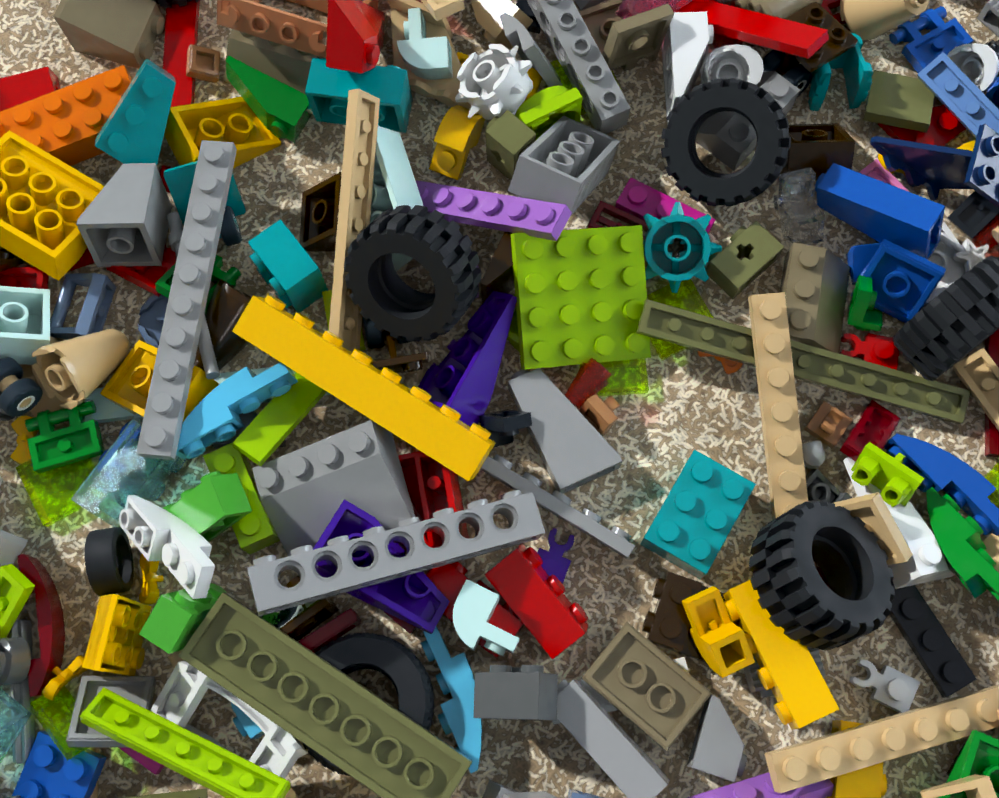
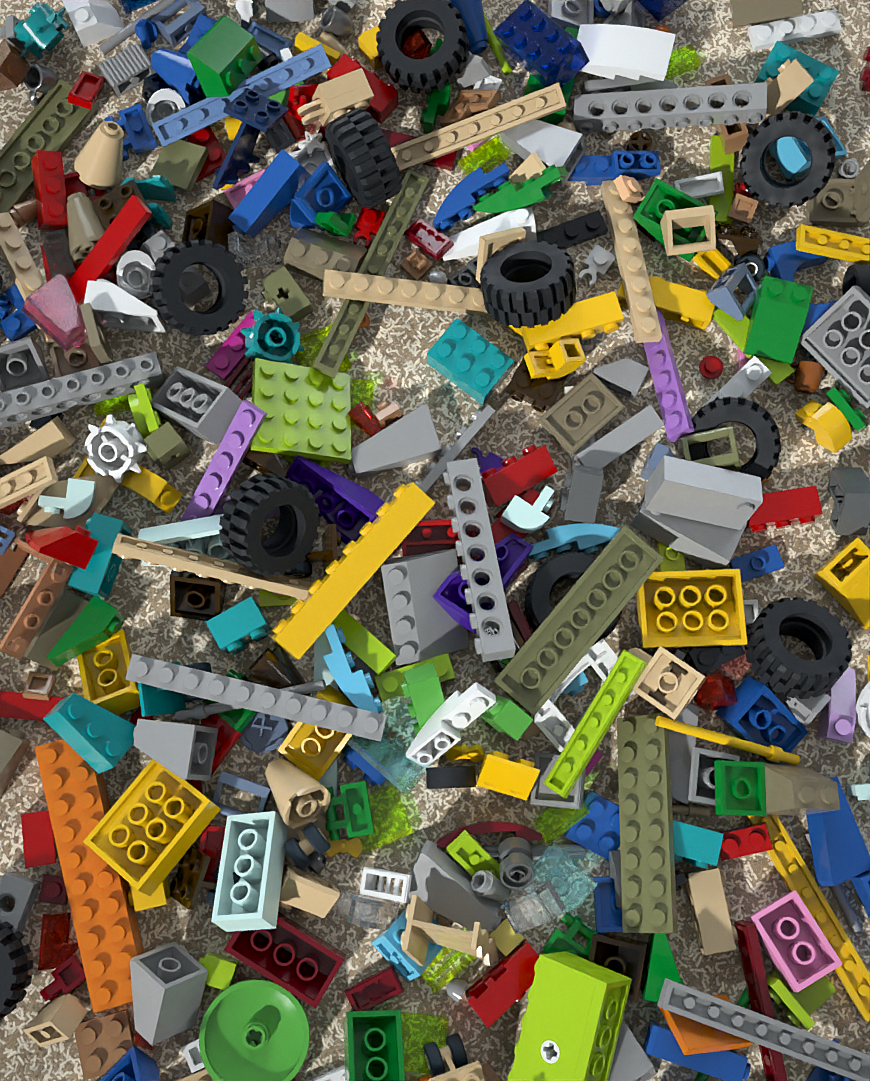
camera: 90 degrees left, 5 degrees up
(63, 677) = (536, 820): yellow piece -> none
(505, 425) = (386, 480): black bracket -> none
(528, 49) = (94, 417): light grey slope -> none
(887, 474) = (462, 232): lime hips -> none

